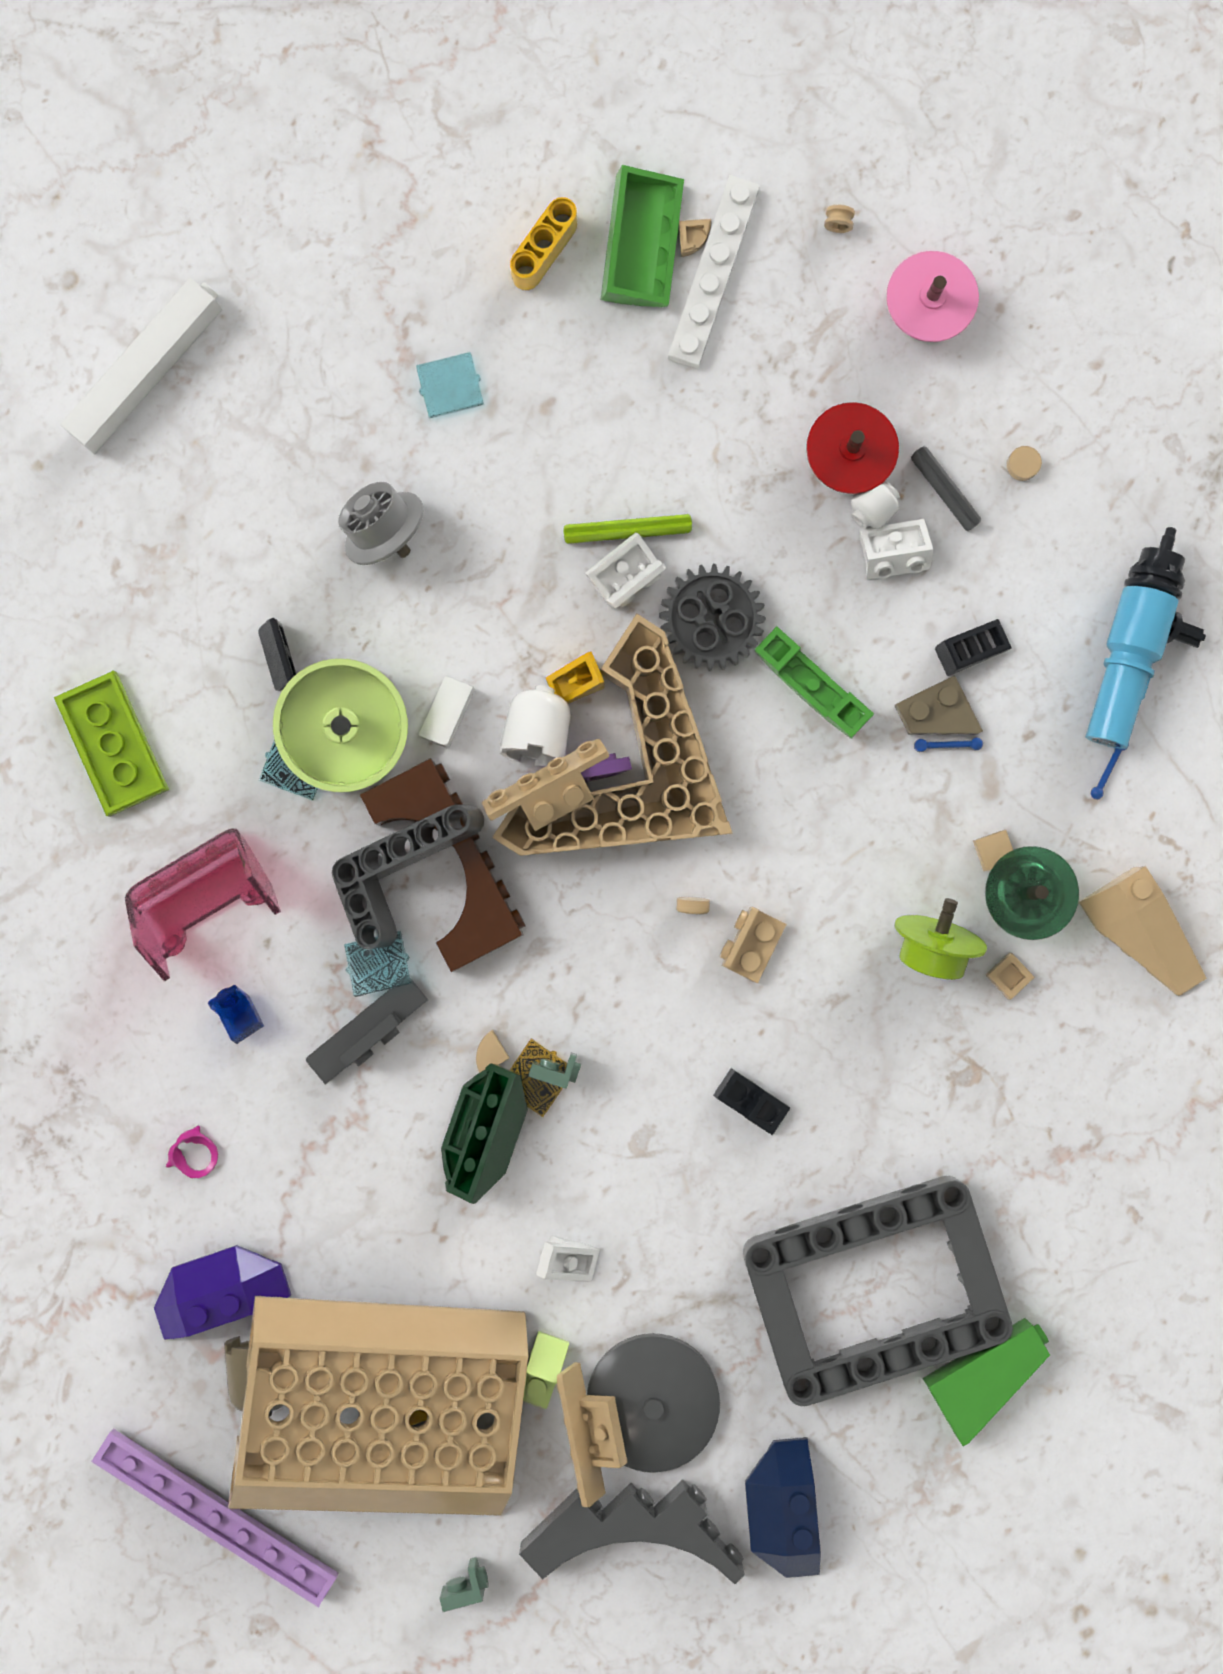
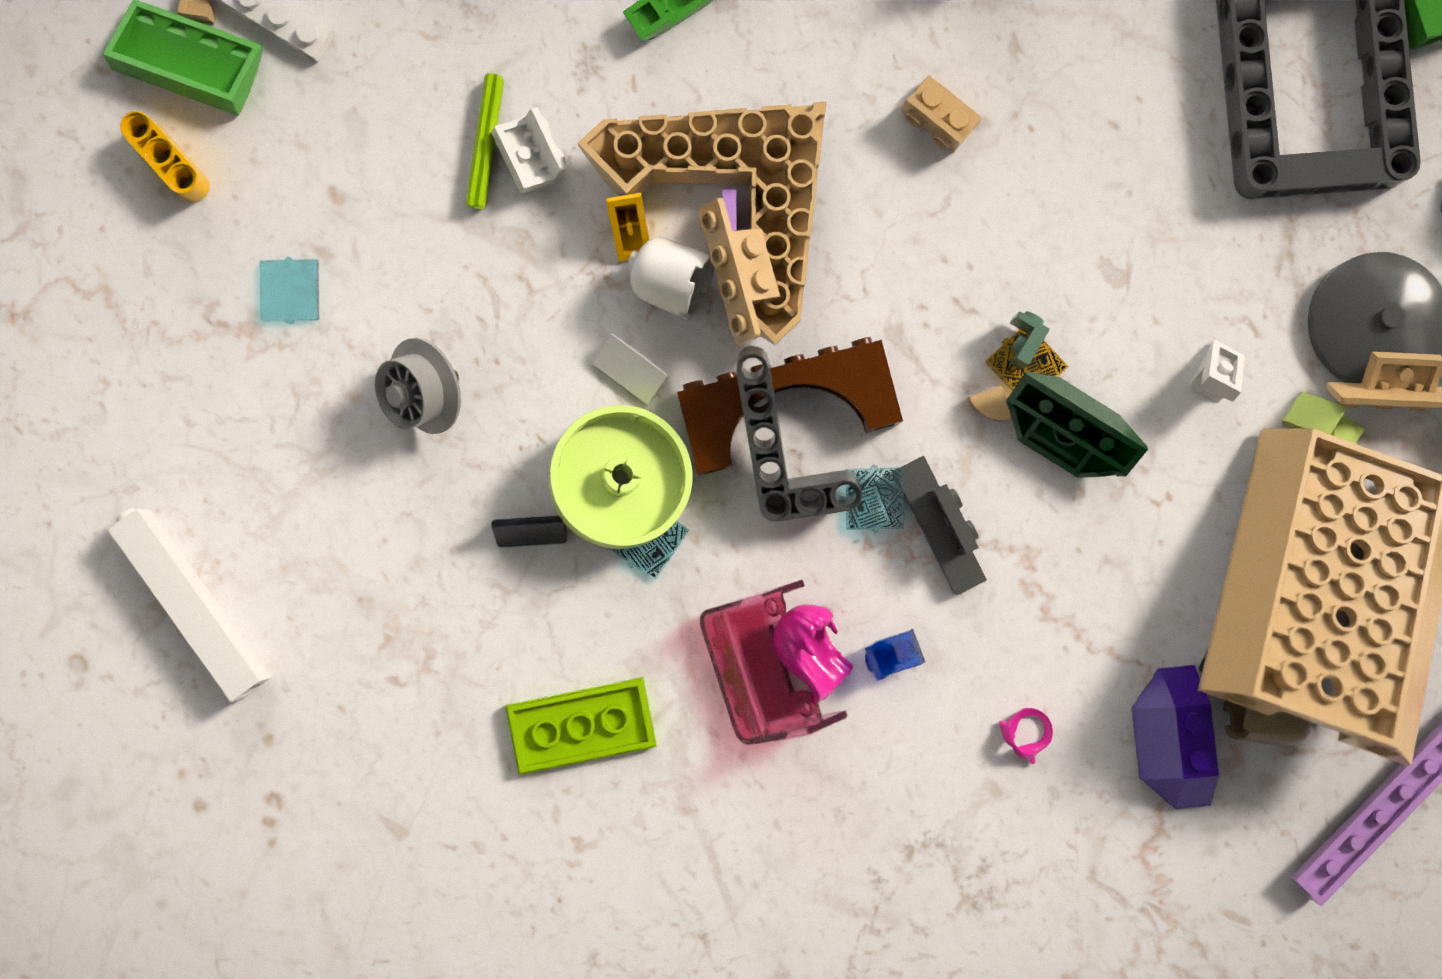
camera: 75 degrees left, 0 degrees up
(220, 935) = (807, 651): none -> dark pink piece
(693, 905) = (888, 163): tan tile -> none
(739, 605) = (590, 46): dark grey gear -> none
(751, 1101) = (1099, 152): black slope -> none

